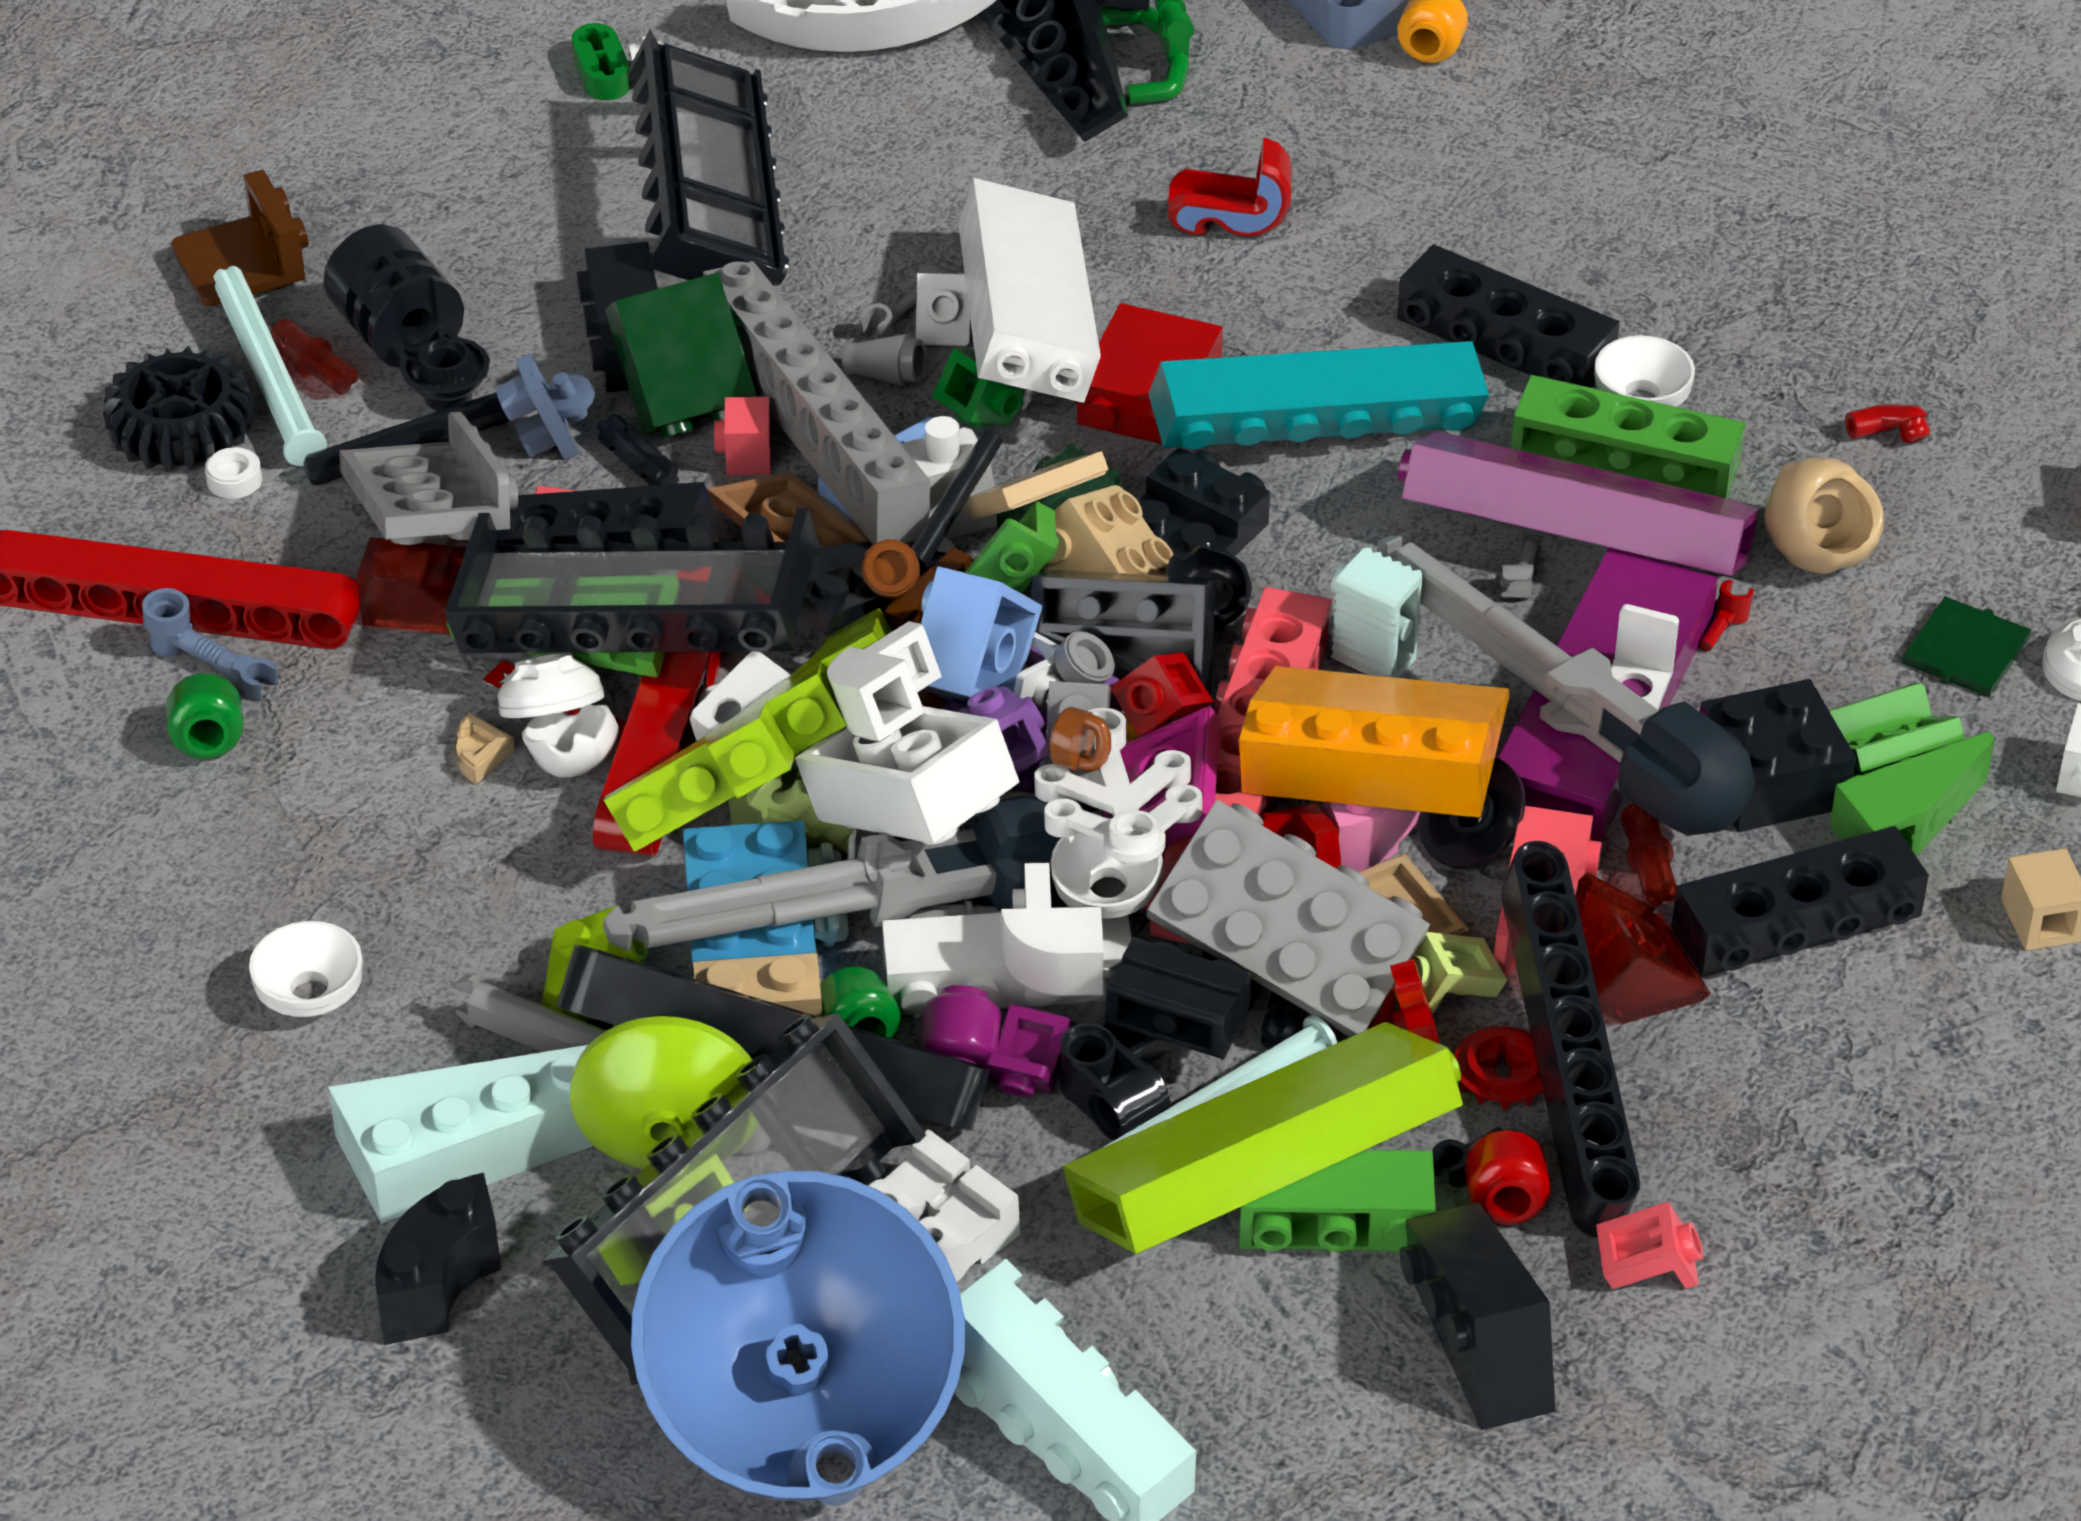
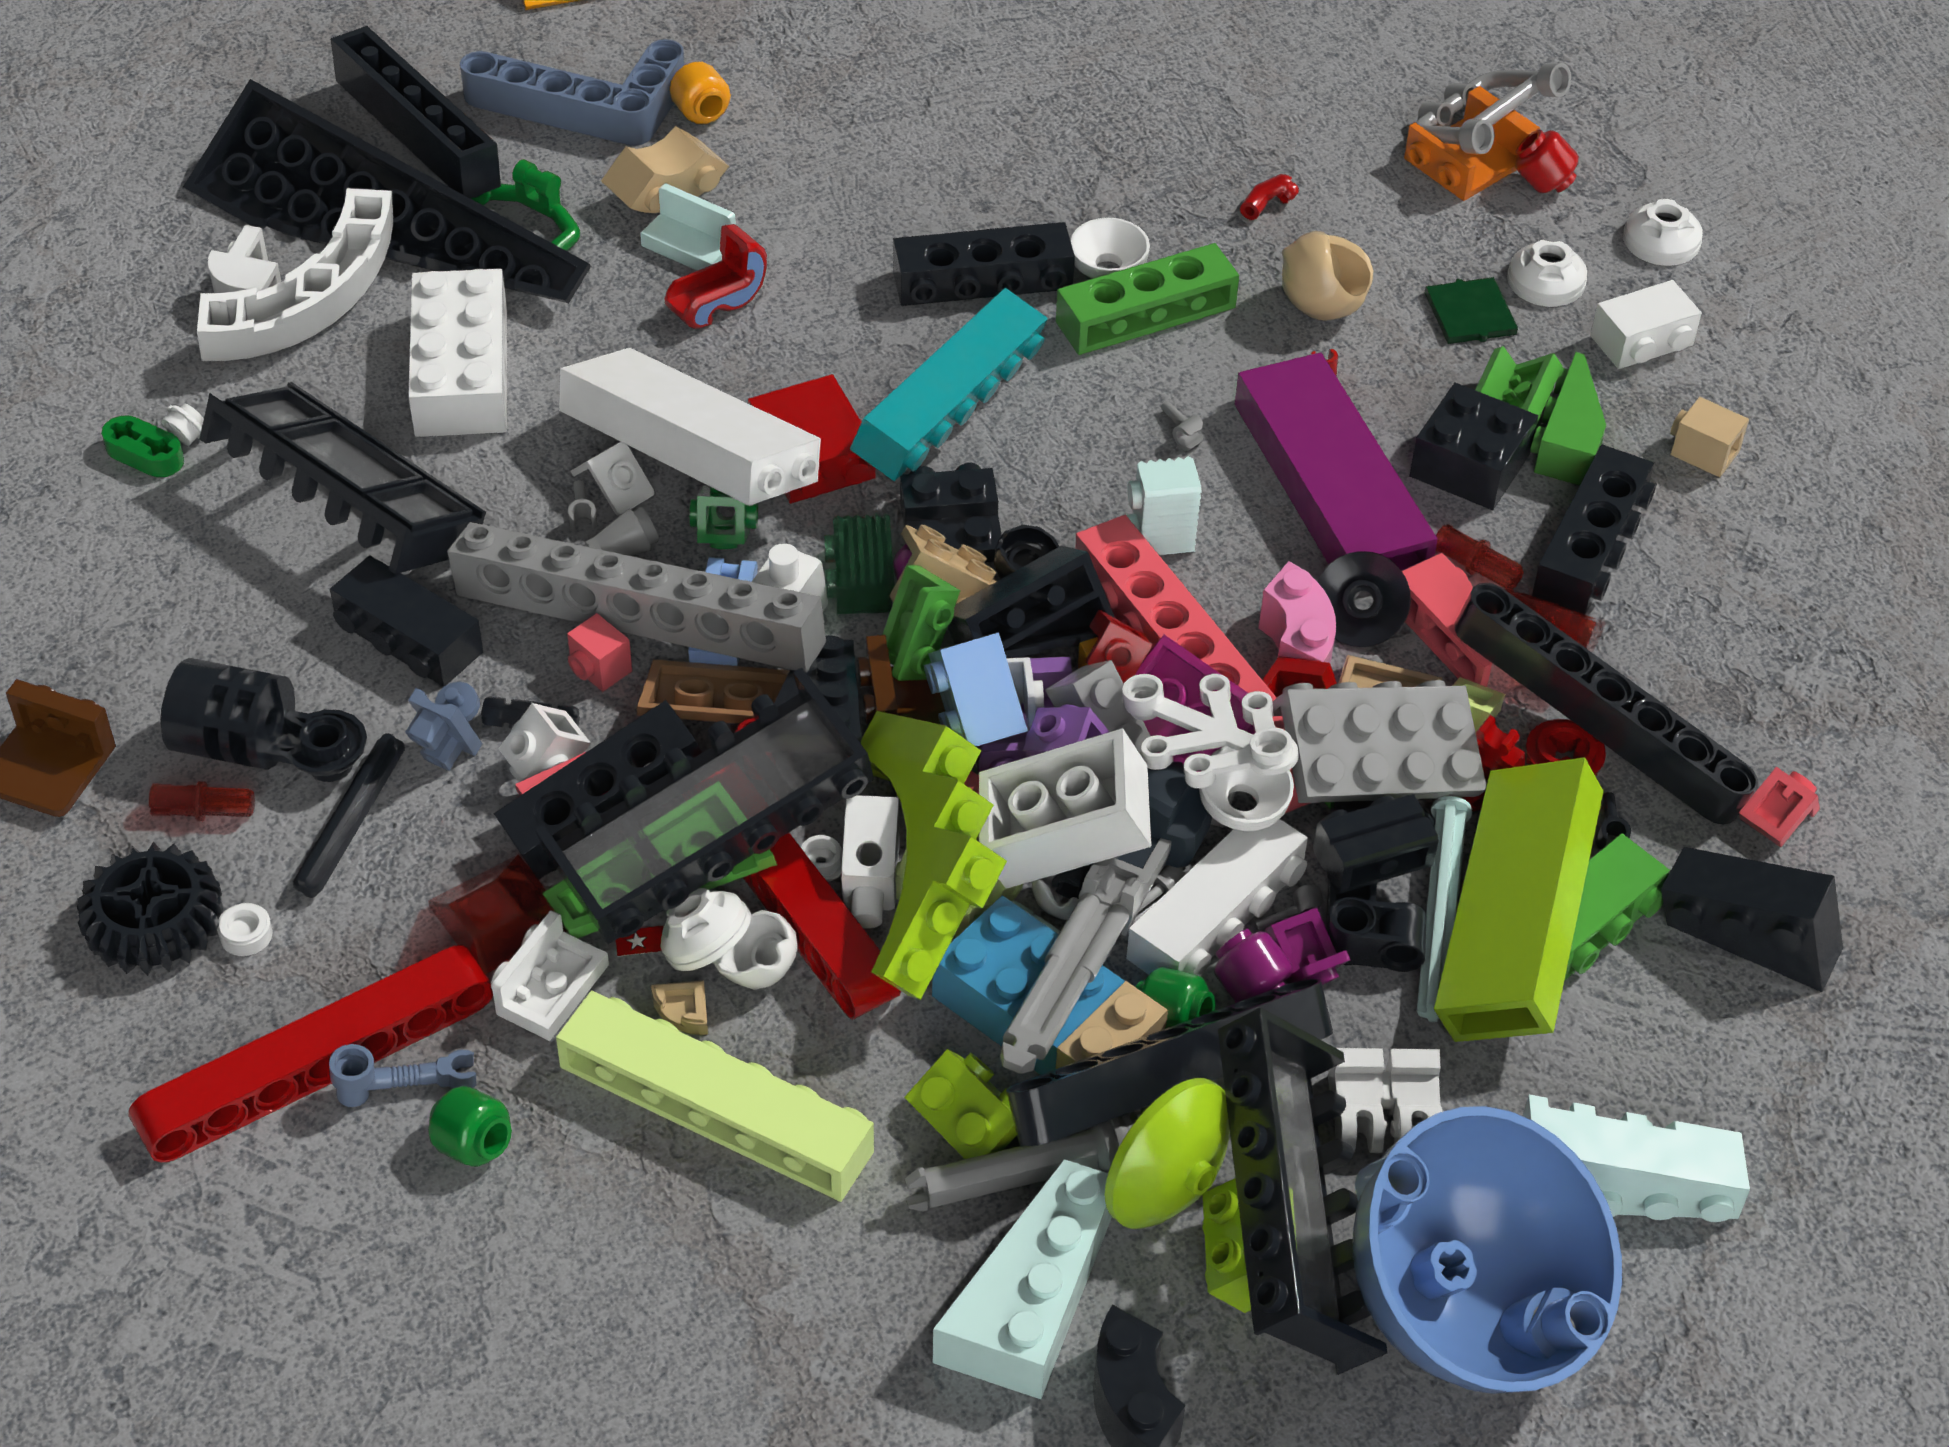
camera: 45 degrees left, 5 degrees up
(268, 367) = (180, 829): light aqua axle -> none
(301, 955) = (779, 1236): white piece -> none
(393, 647) = (546, 978): none -> white bracket
(411, 824) = (716, 1094): none -> yellowish green brick
(432, 485) = (444, 832): light grey bracket -> none
(604, 463) = (542, 741): none -> white brick
(680, 354) = (503, 622): dark green brick -> none
(881, 683) = (994, 760): white brick -> none
(890, 568) = (863, 677): dark orange tile -> none
(935, 128) = (458, 353): none -> white brick
(956, 496) = (833, 602): black bar -> none
(1036, 485) = (879, 556): tan tile -> none
(1051, 947) = (1267, 867): white brick -> none
(1074, 737) = (1152, 711): dark orange tile -> none
(1084, 659) = (1046, 657): light grey tile -> none
(1277, 124) = (687, 228): none -> light aqua panel
(1309, 78) = (674, 160): none -> tan brick
(1371, 740) = (1290, 585): light orange slope -> none
(1508, 1176) = (1663, 819): red head -> none
(1580, 502) = (1185, 355): brick -> none
(1646, 649) = (1357, 427): white bracket -> none
(1669, 758) = (1469, 485): piece -> none

